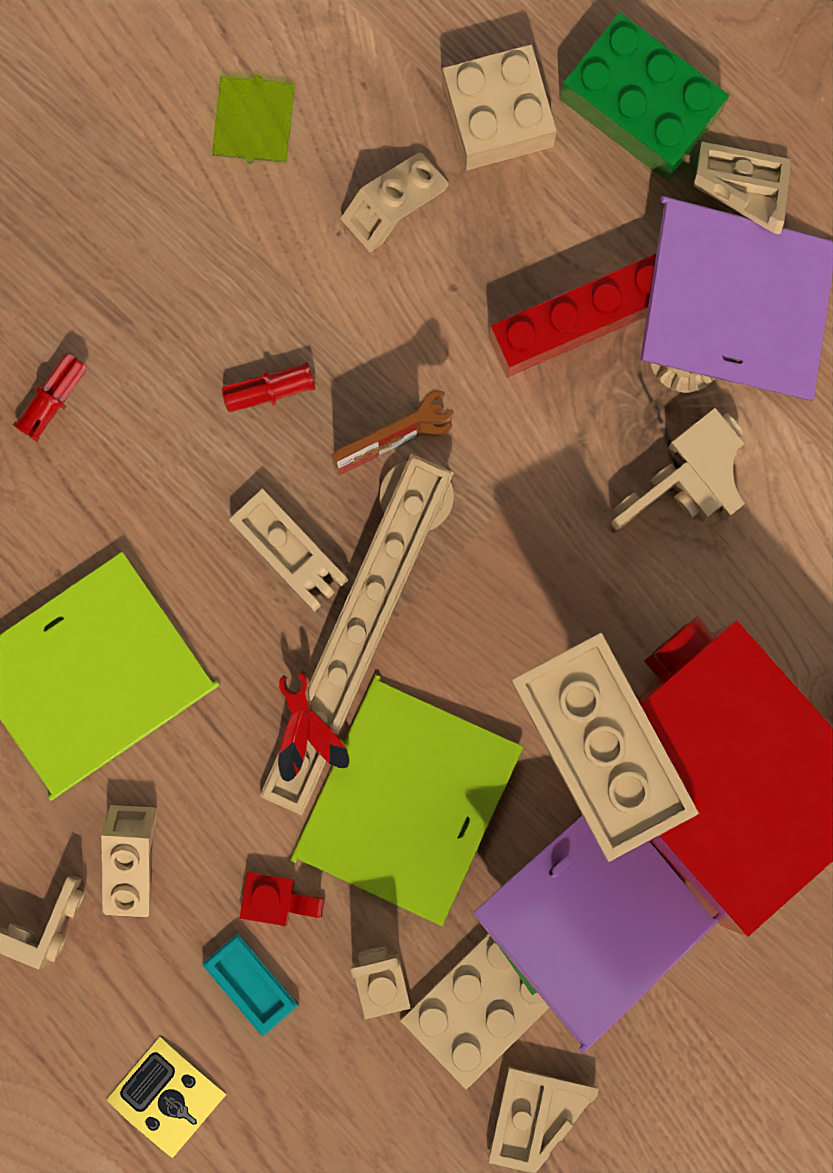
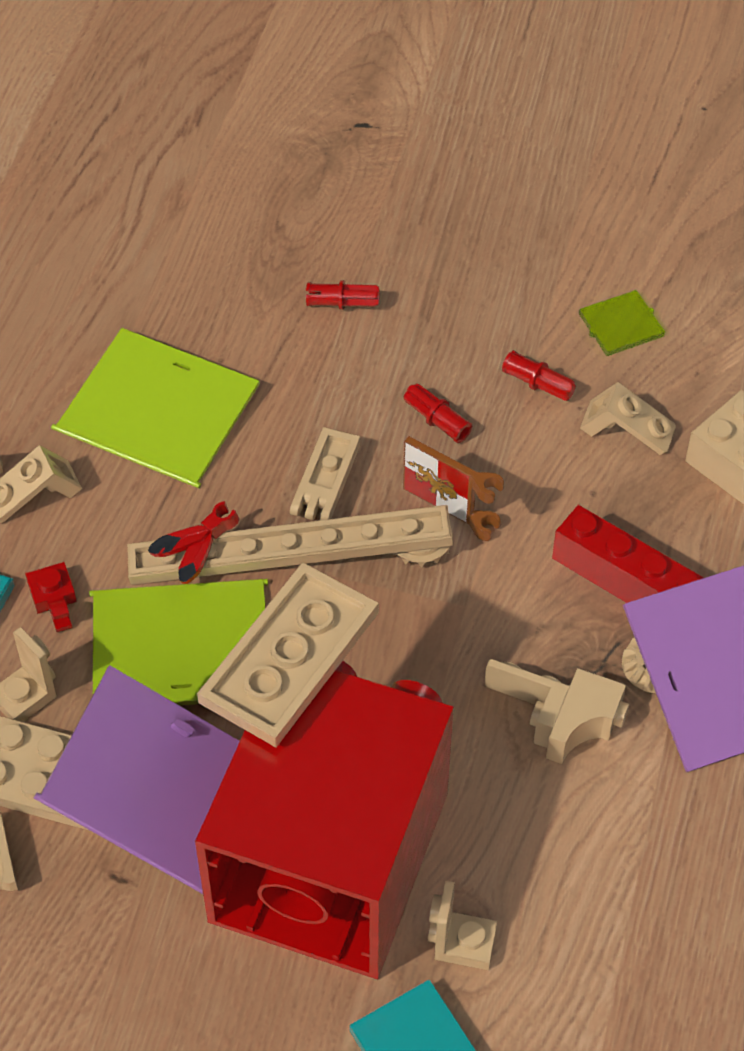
camera: 60 degrees right, 30 degrees down
(282, 254) = (538, 375): none -> red axle

